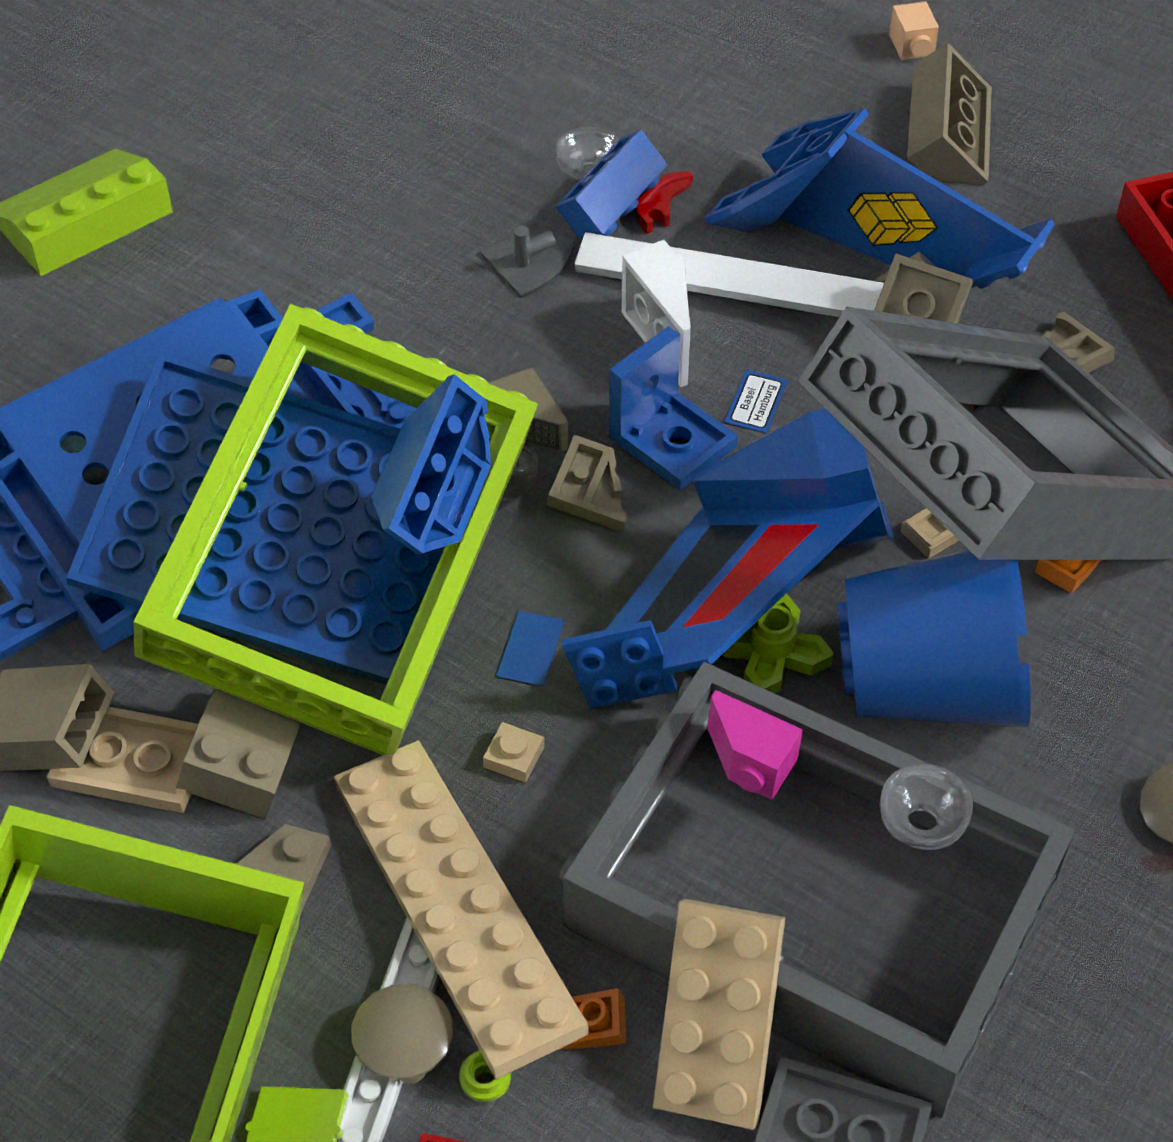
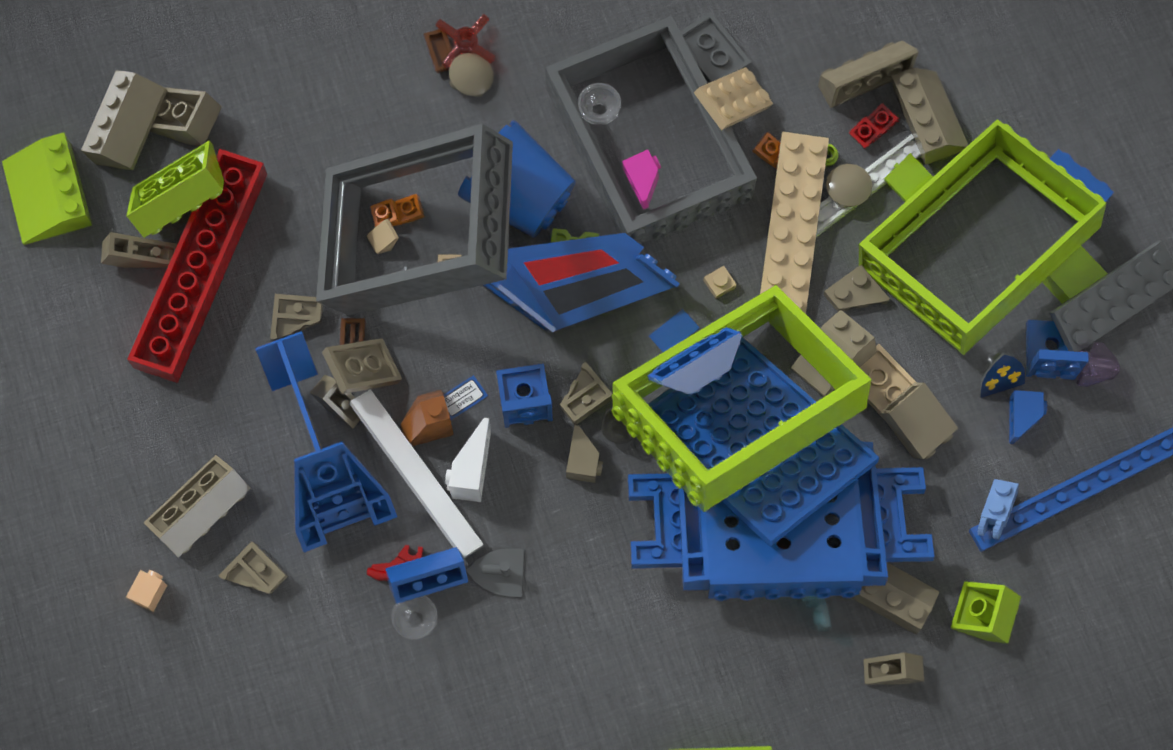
camera: 145 degrees left, 20 degrees up
(767, 330) = (427, 419): none -> dark orange slope
(812, 104) = (254, 570): none -> dark tan wing

